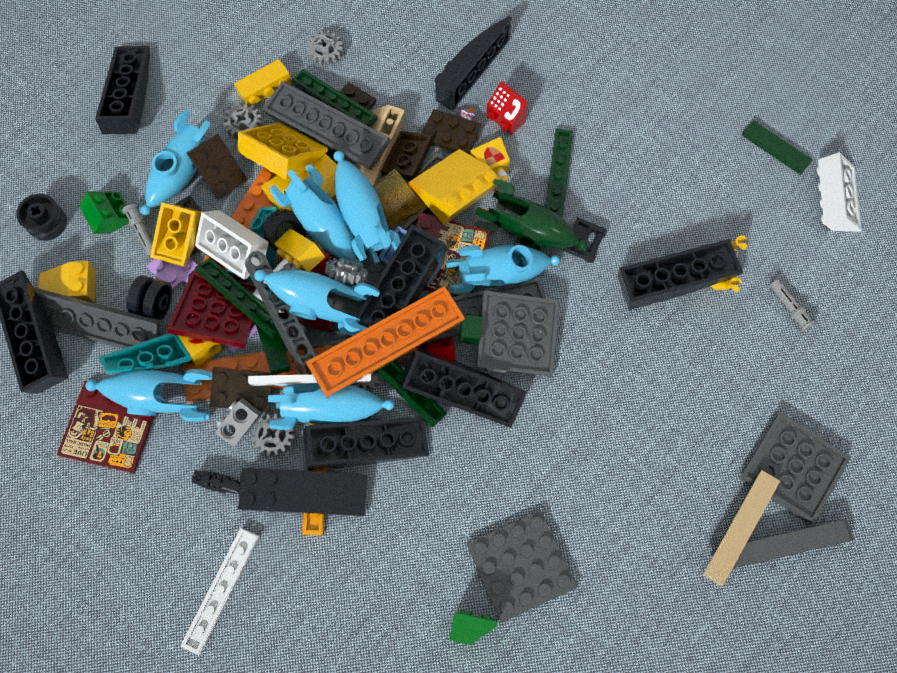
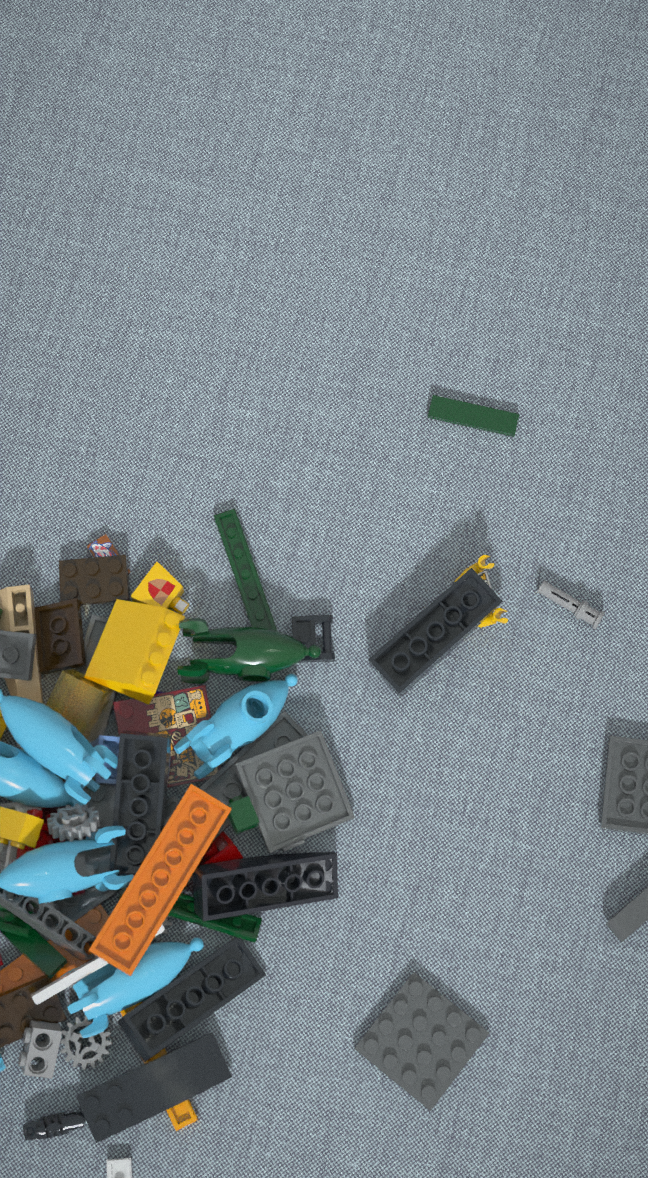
camera: 30 degrees left, 5 degrees up
(469, 629) = (403, 1135): green slope -> none
(470, 64) = (74, 485): black slope -> none
(507, 108) = (146, 522): red slope -> none
(741, 528) = (624, 884): tan tile -> none
(839, 194) = (565, 443): white slope -> none

